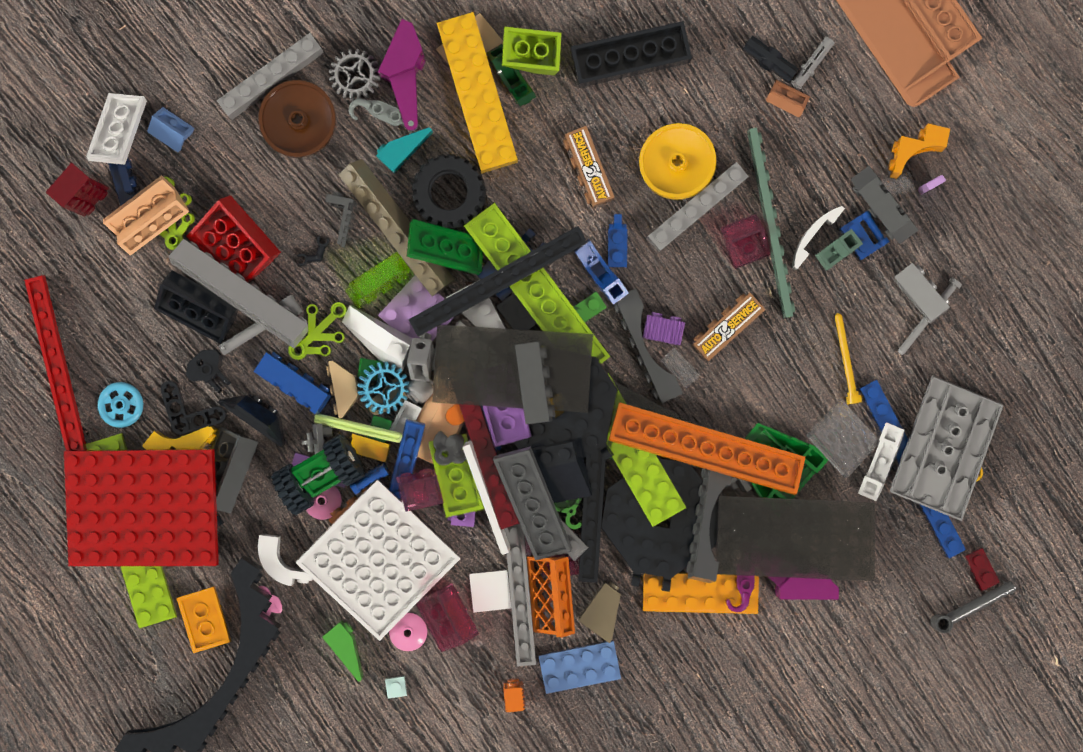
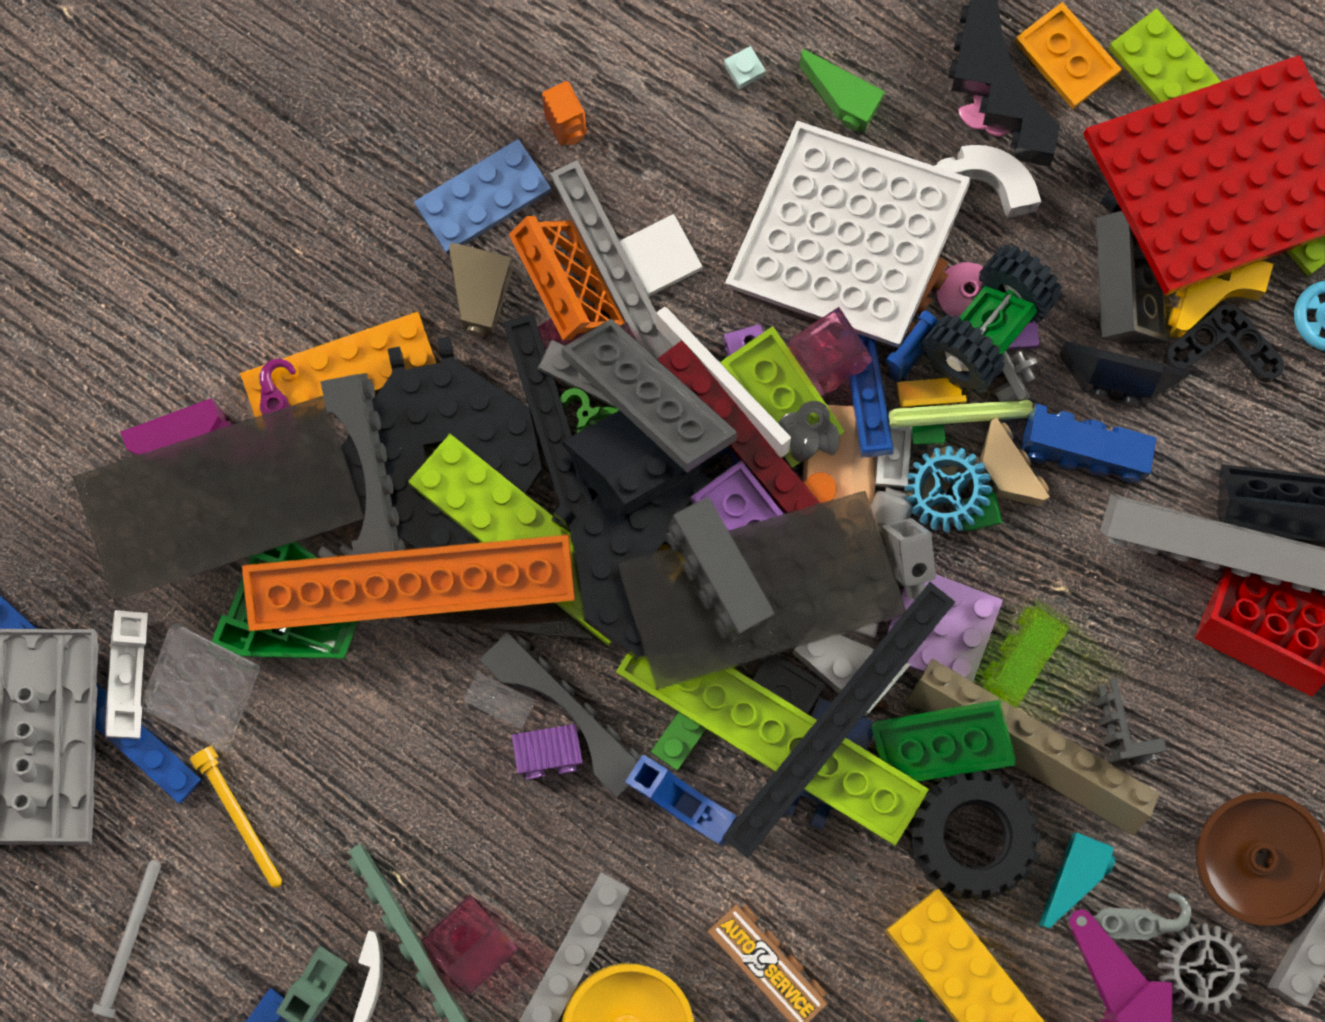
camera: 165 degrees right, 10 degrees down
(209, 370) = (1228, 417): black hinge -> none
(255, 328) = (1147, 563): light grey piece -> none
(315, 333) = (1086, 535): lime plant -> none
(318, 257) = (1133, 663): black arm -> none
(379, 338) = (980, 564): white wedge -> none
(418, 632) = (752, 164): bright pink dish -> none
(447, 618) = (709, 191): clear pink slope -> none
(617, 243) = (673, 860): blue hinge -> none
(728, 326) = (446, 795): brick -> none
(922, 292) = (151, 971): light grey brick -> none

